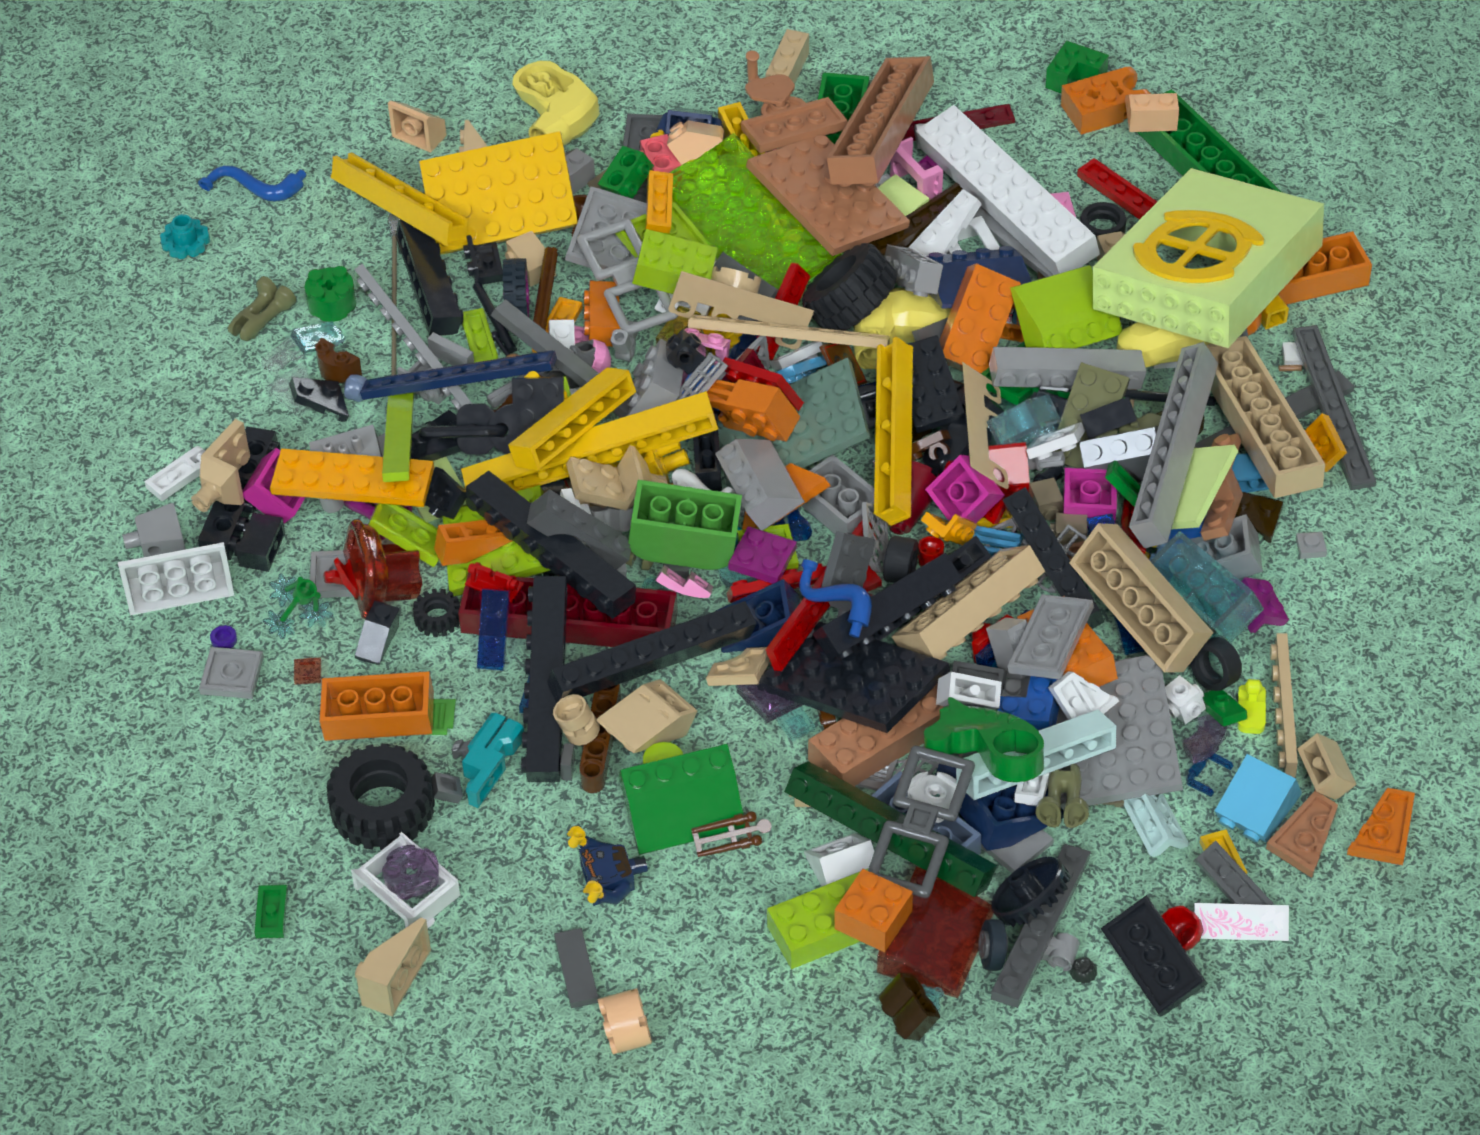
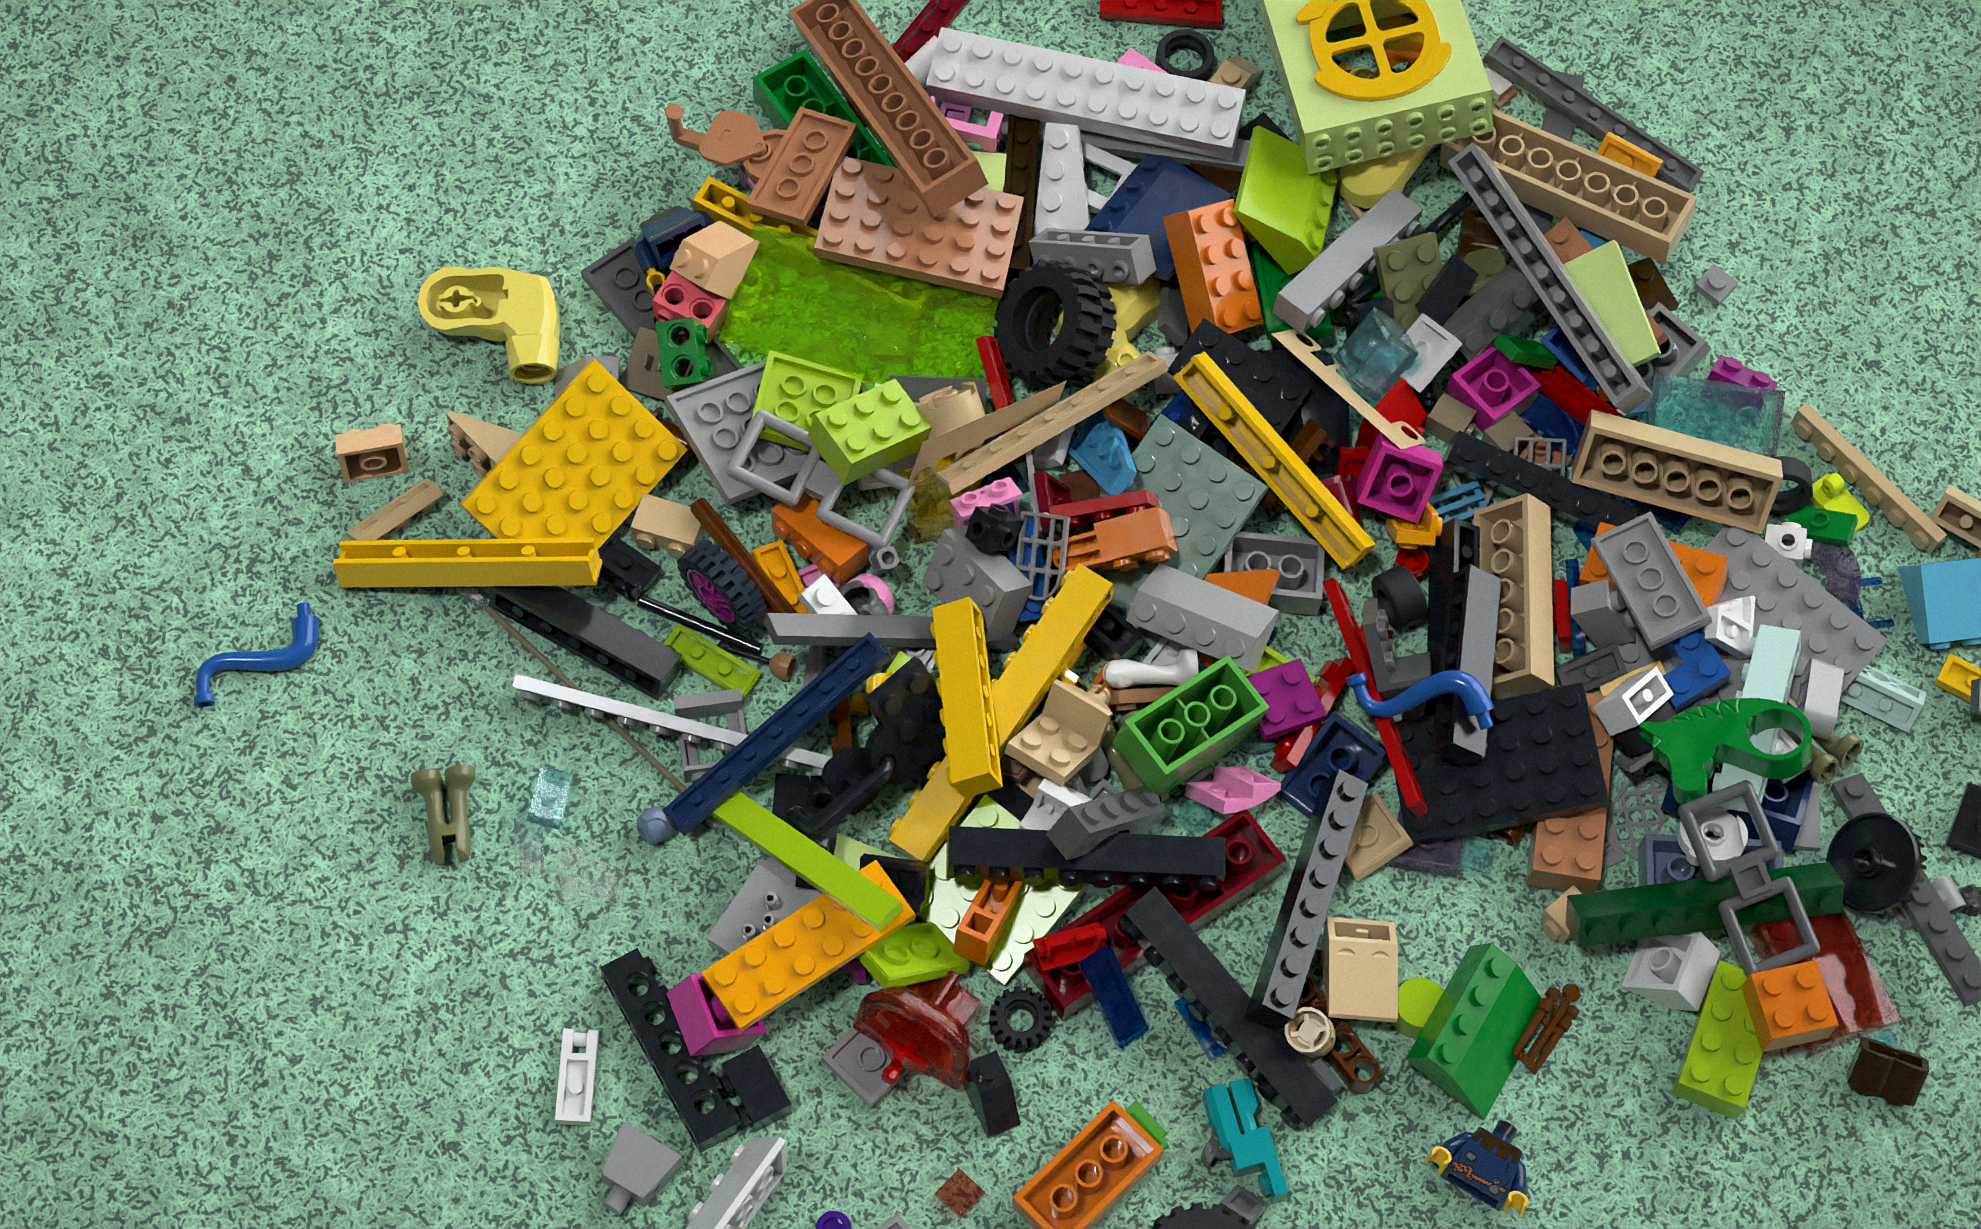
camera: 50 degrees left, 15 degrees up
(184, 237) = (259, 787): teal plant -> none
(220, 468) = (664, 1064): tan plate -> none
(296, 592) = (893, 1119): clear light blue plant -> none
(319, 395) = (629, 865): black wing -> none
(330, 293) = (501, 716): green brick -> none
(336, 365) = (602, 819): reddish brown cylinder -> none
(395, 163) = (397, 512): none -> tan plate
(659, 201) = (765, 364): light orange plate -> none
(790, 55) = (683, 84): tan brick -> none
(882, 537) = (1346, 582): light grey window -> none
(993, 944) = (1893, 944): black wheel -> none
(1088, 772) = (1820, 696): none -> beam

